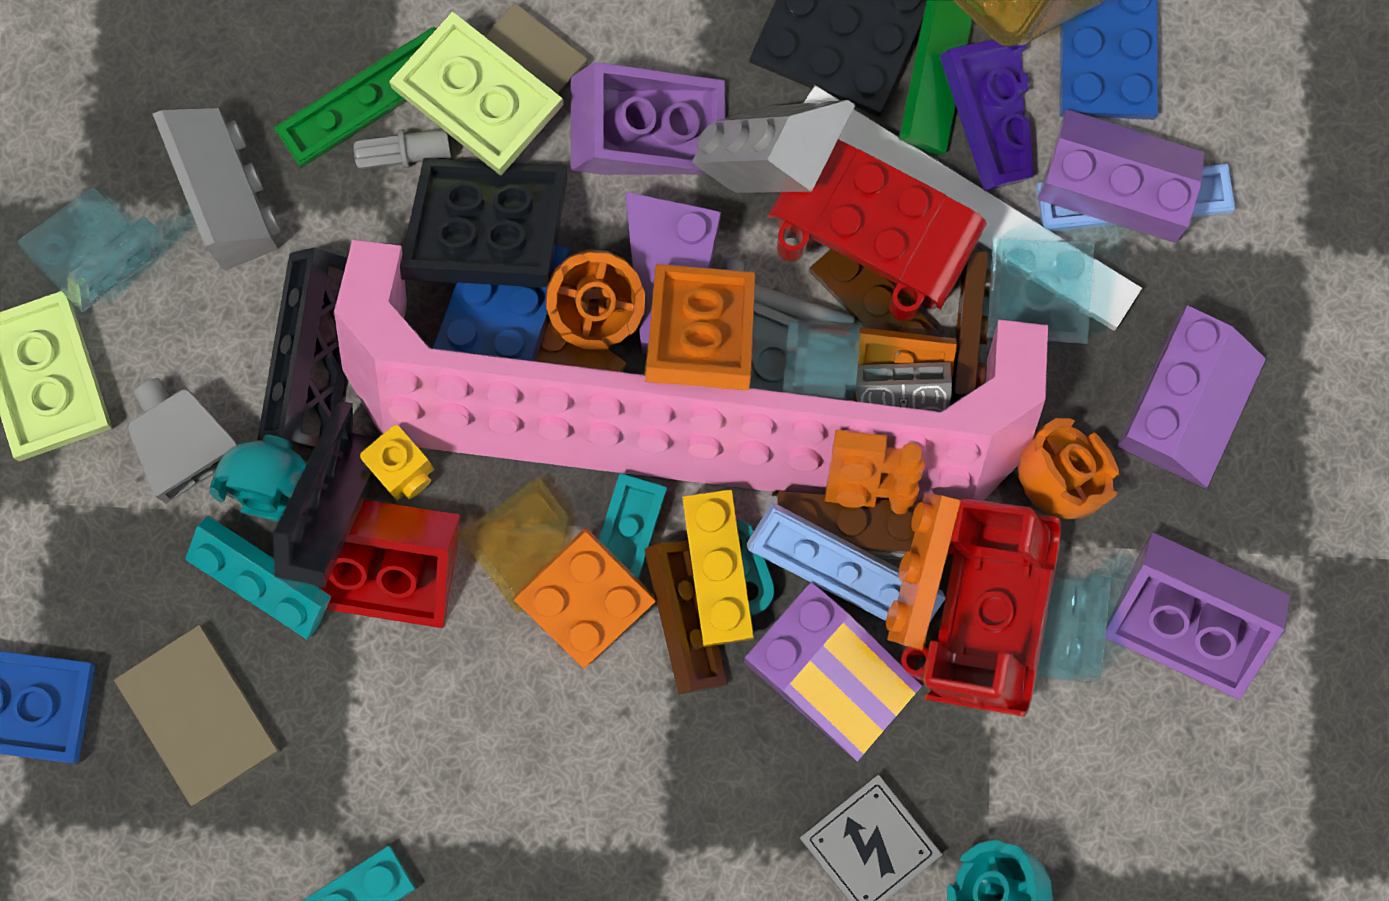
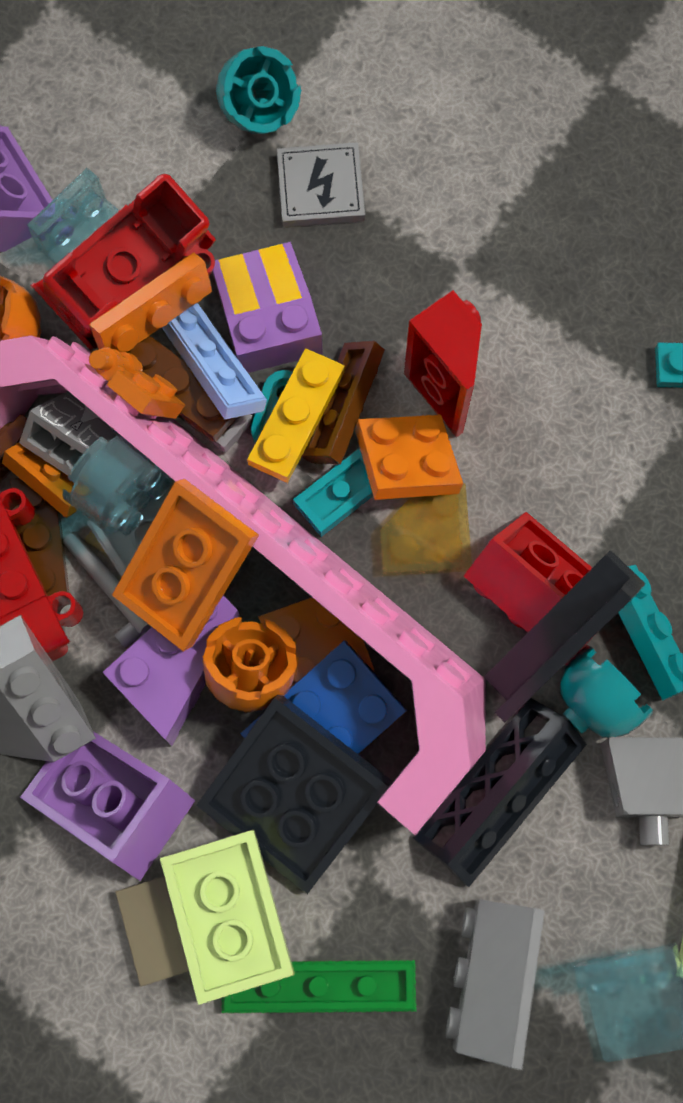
camera: 145 degrees left, 5 degrees down
(398, 463) = (487, 643): yellow bracket -> none
(401, 149) = (319, 916): light grey axle -> none
(600, 700) = (444, 357): none -> red slope

